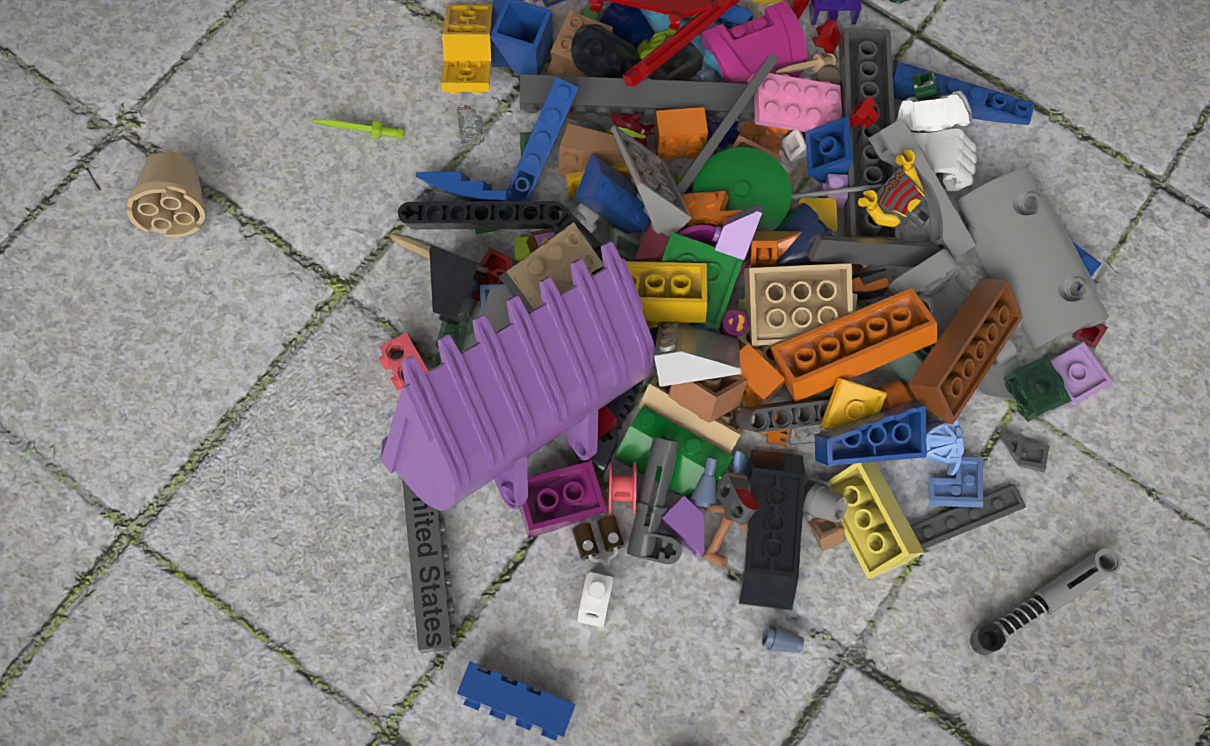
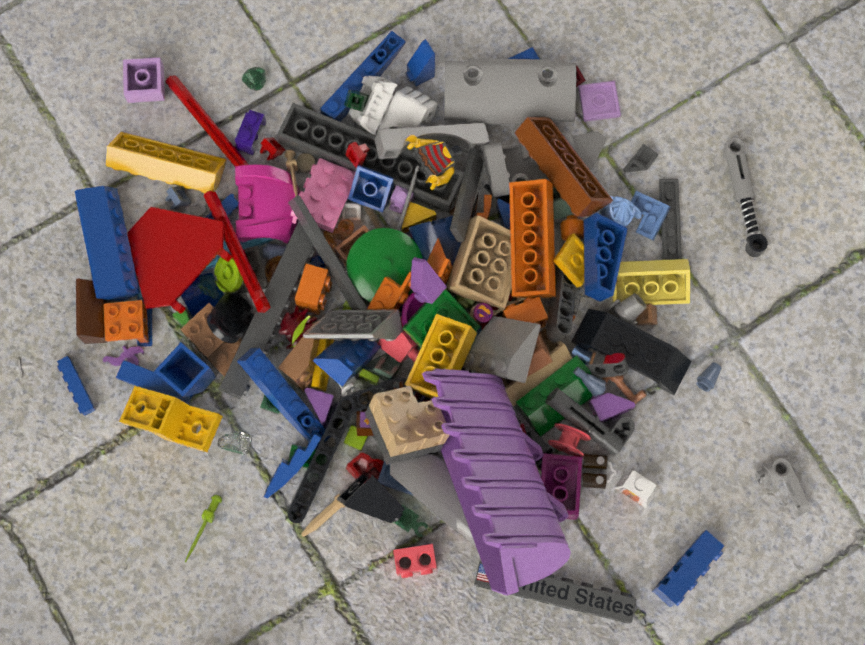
camera: 65 degrees left, 5 degrees up
(551, 189) = (321, 403): none -> medium lavender slope
(605, 231) = (369, 376): none -> lime tile
(1009, 148) = (421, 65): none -> blue slope
(1030, 401) = (595, 140): clear green brick -> none

